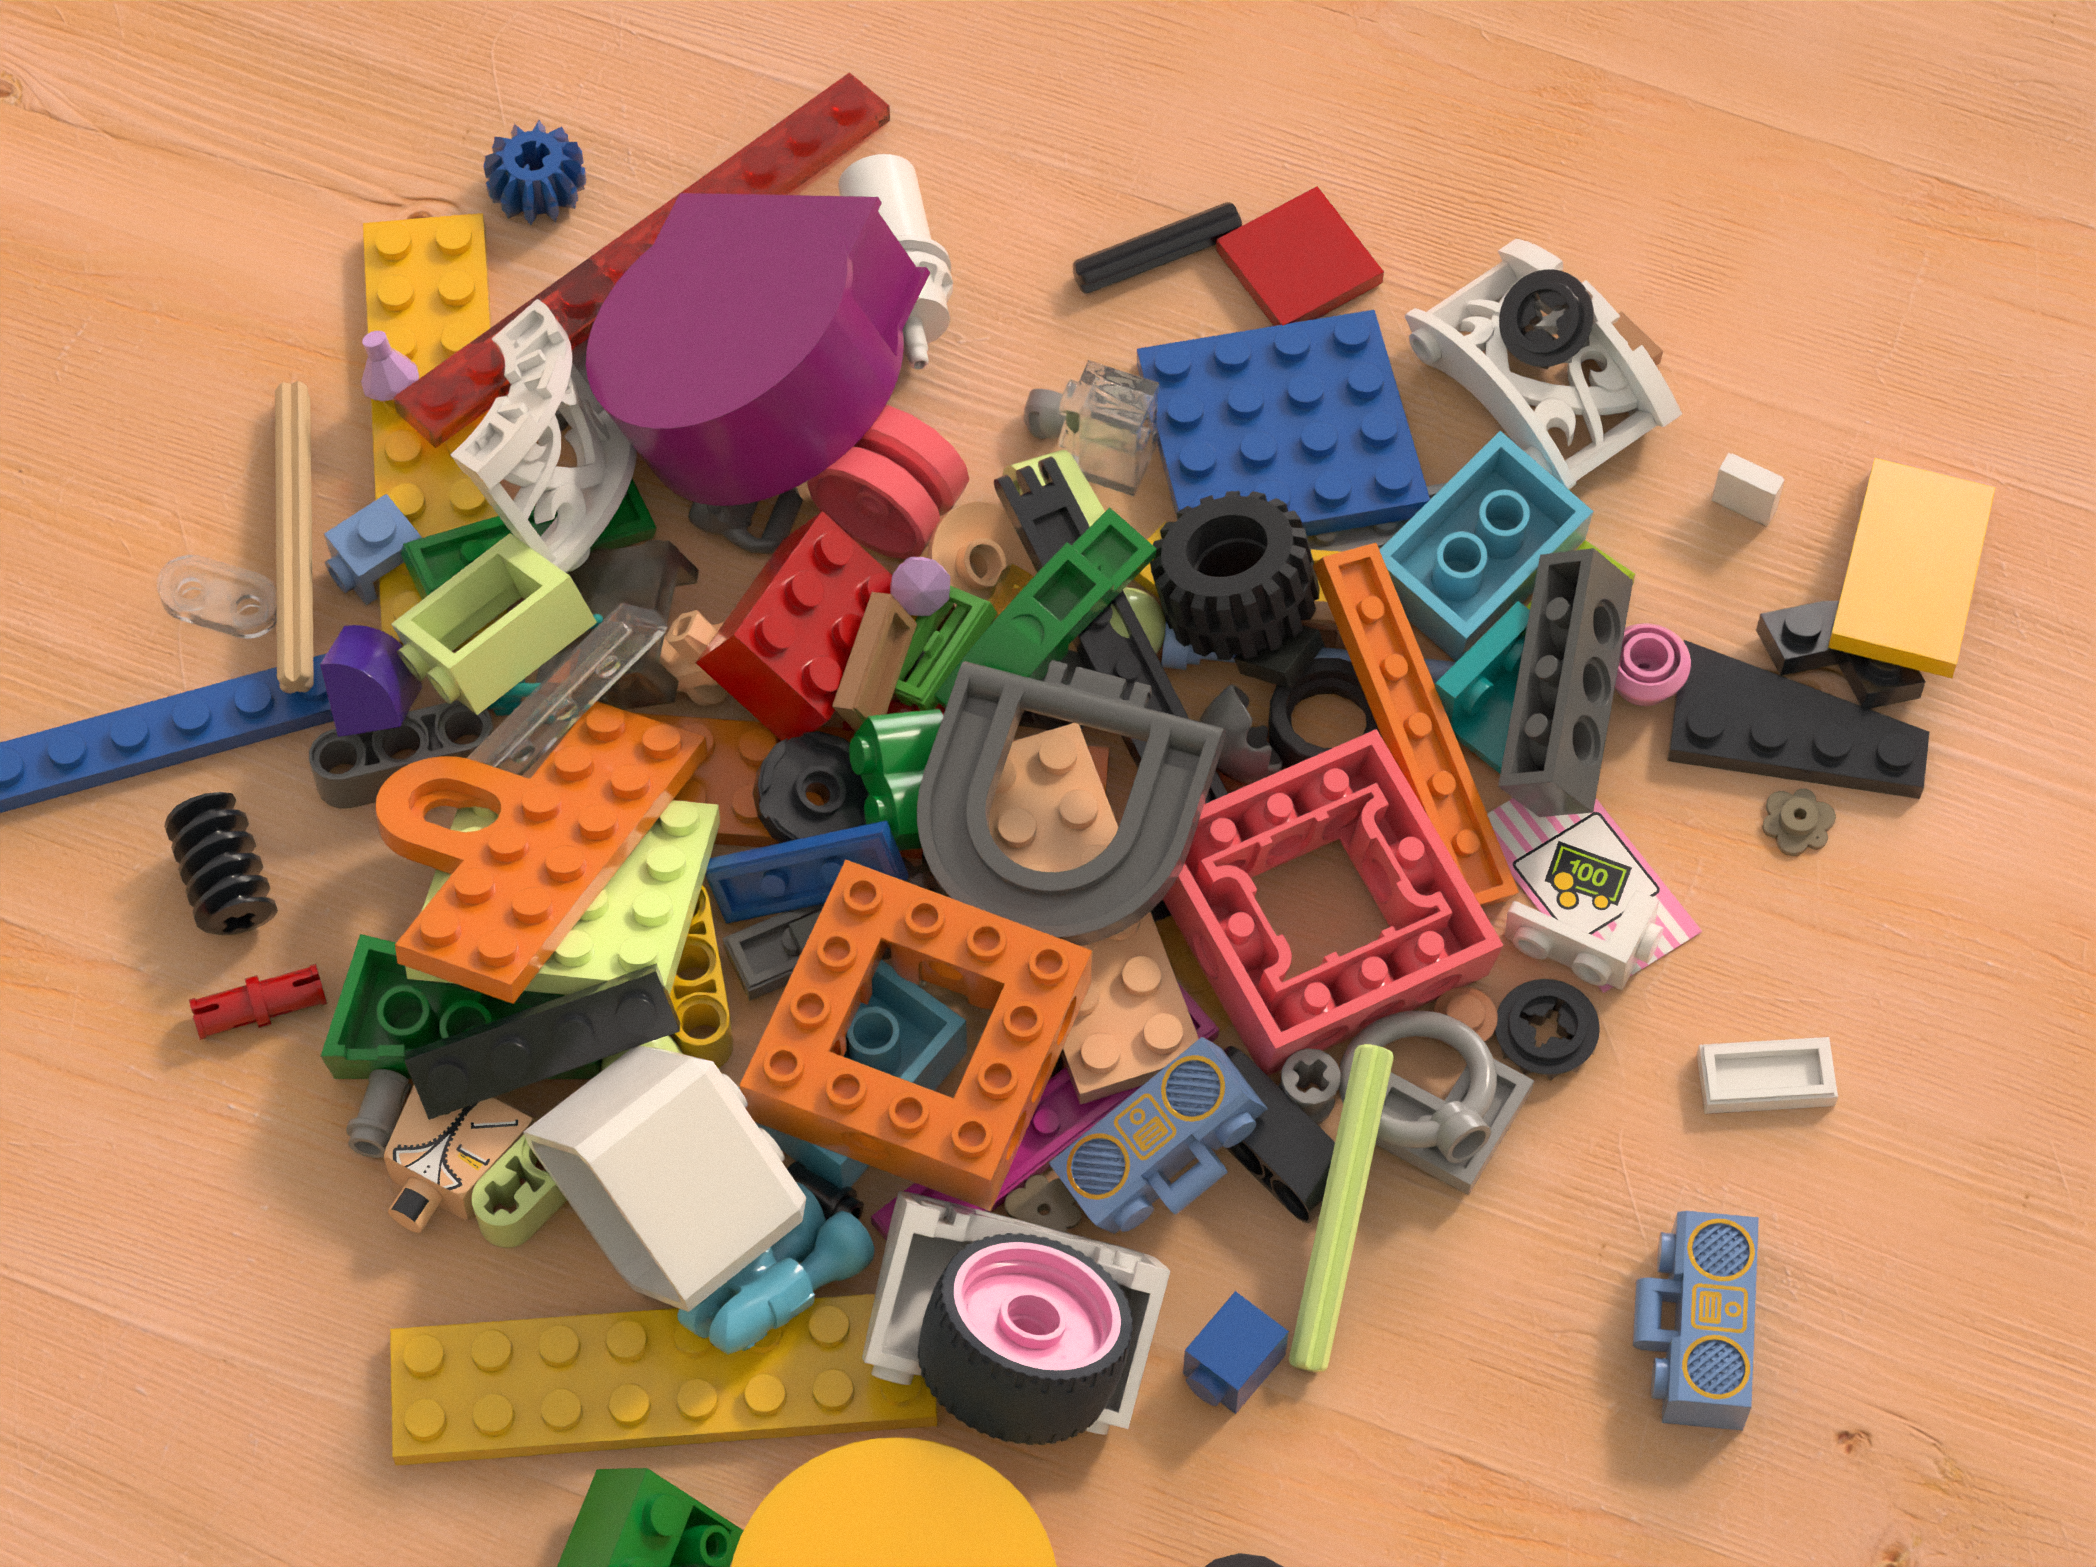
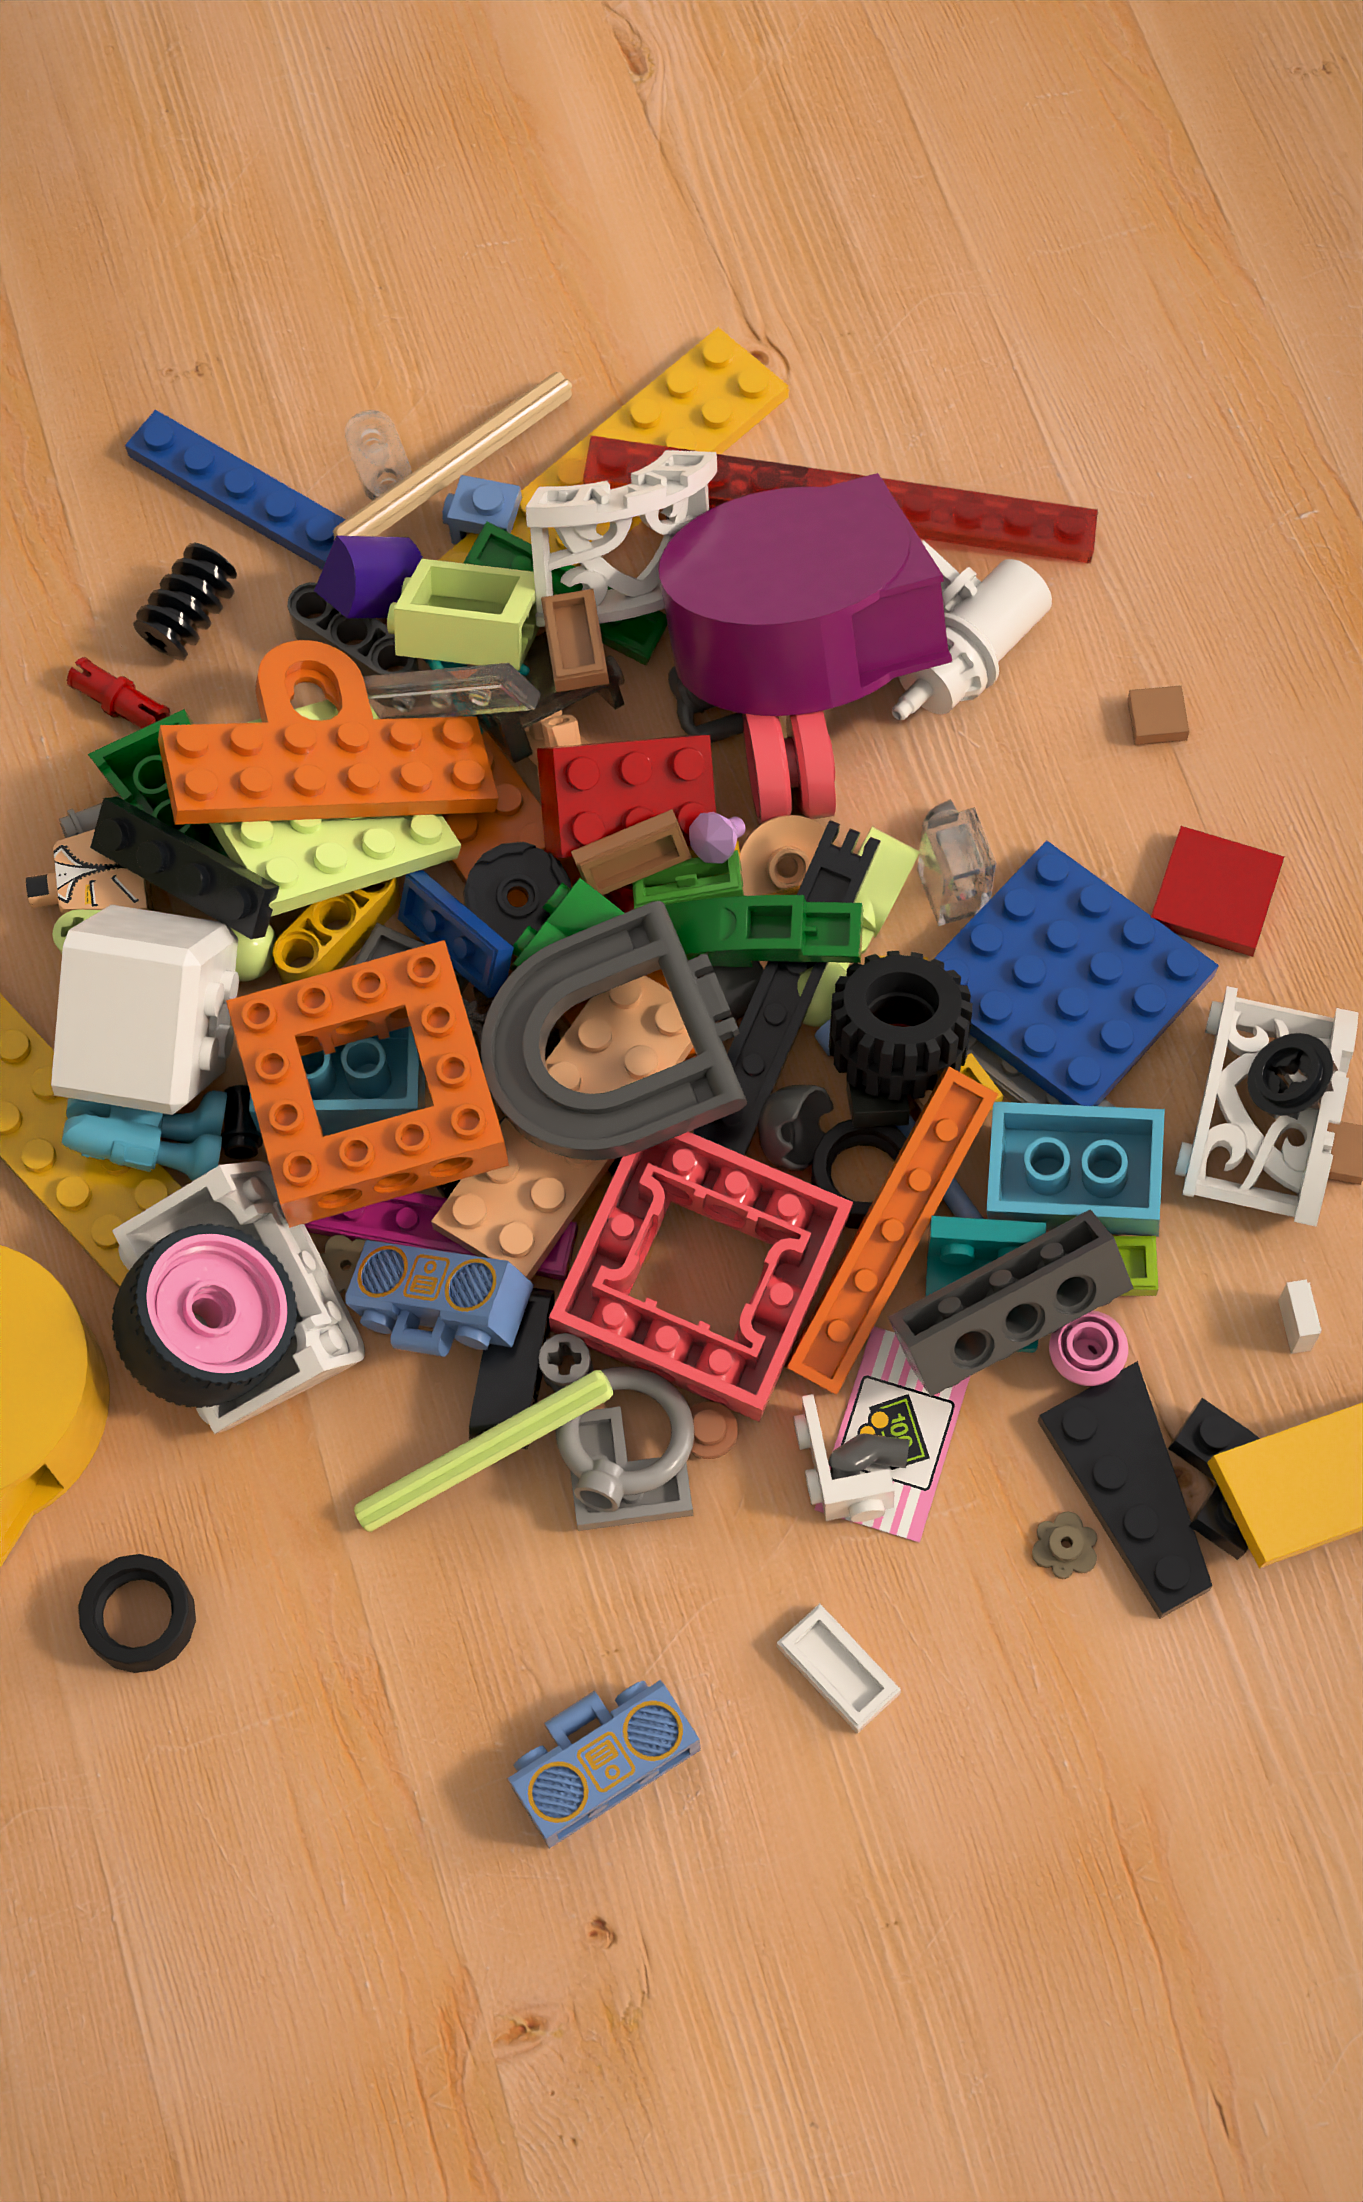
camera: 55 degrees right, 5 degrees up
(386, 369) = (610, 416): lavender rock -> none
(535, 172) = (844, 390): blue gear -> none
(617, 551) = (574, 640): none -> medium nougat tile
(1091, 179) = (1158, 715): none -> medium nougat tile
(1155, 248) = (1140, 794): black axle -> none
(1234, 1354) = (328, 1462): blue brick -> none
(1535, 1003) = (764, 1470): black gear -> none
(1590, 905) = (868, 1450): none -> dark grey arm

